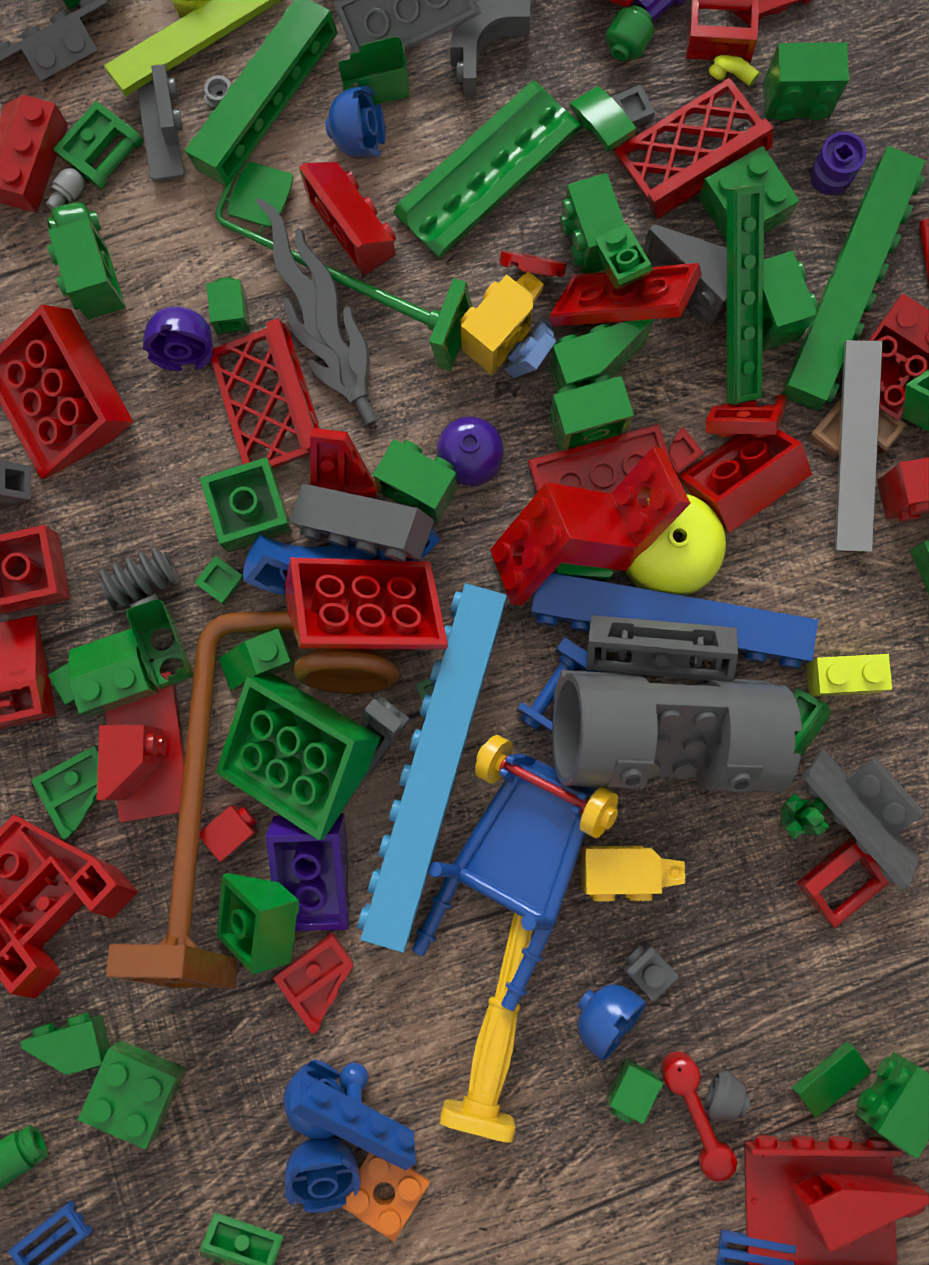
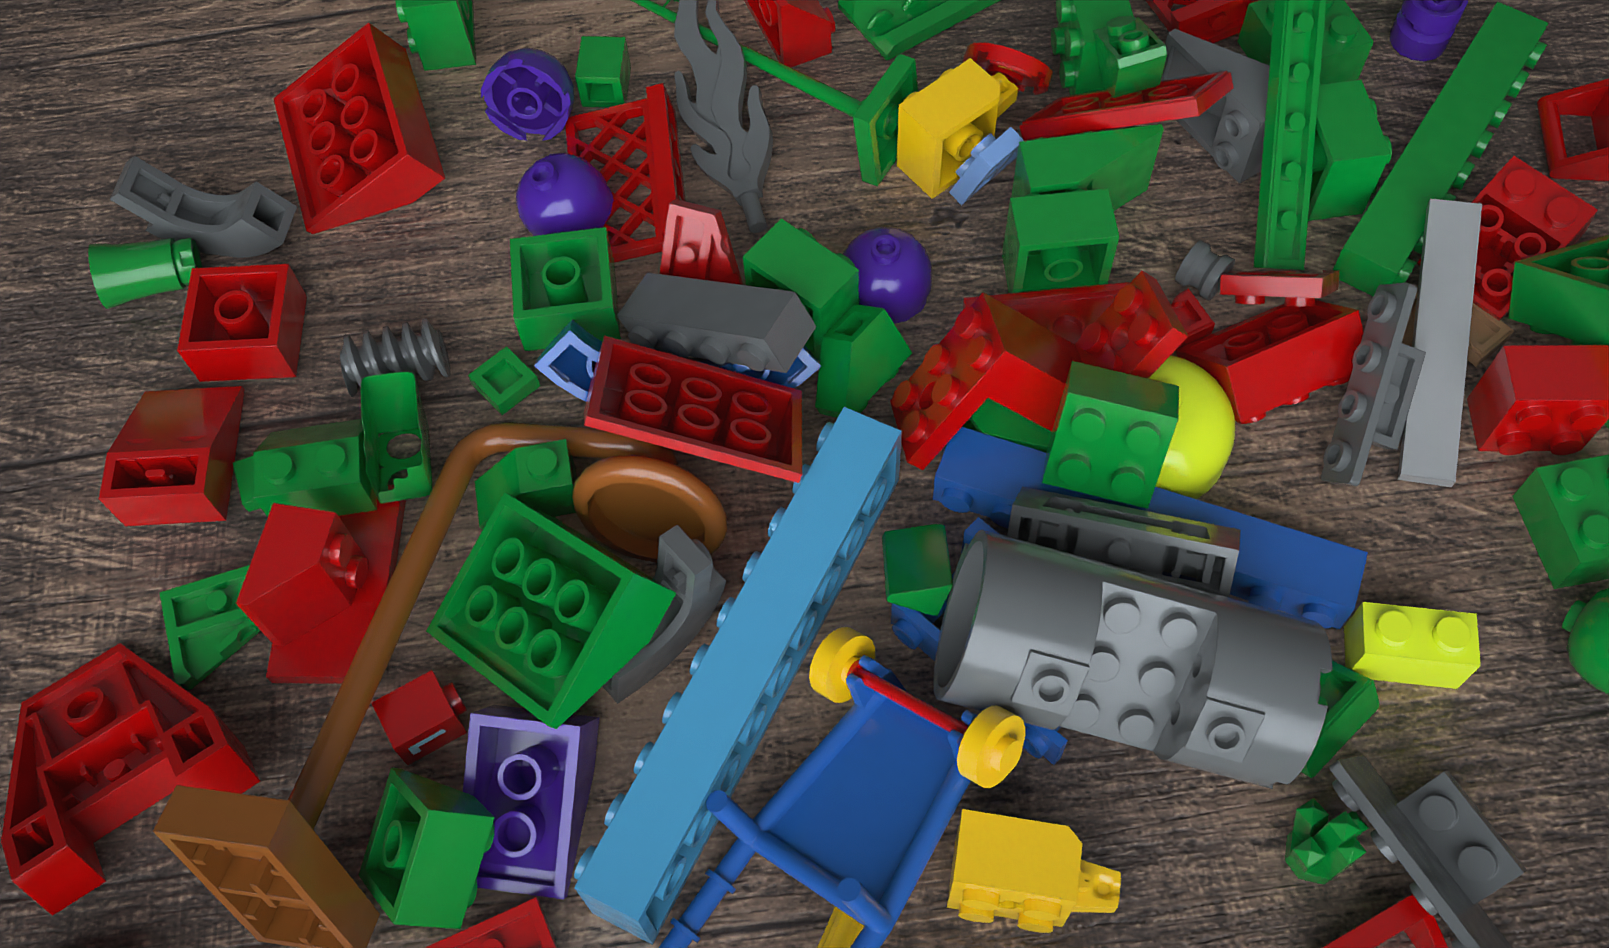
camera: 10 degrees right, 20 degrees down
(227, 428) = (563, 196): none -> dark purple cylinder
(463, 529) = (858, 359): none -> green slope
(529, 677) = (917, 567): none -> green slope
(646, 575) = (1111, 434): none -> green brick
(693, 412) = (1204, 270): none -> dark grey wheel
(817, 496) = (1378, 387): none -> dark grey bracket

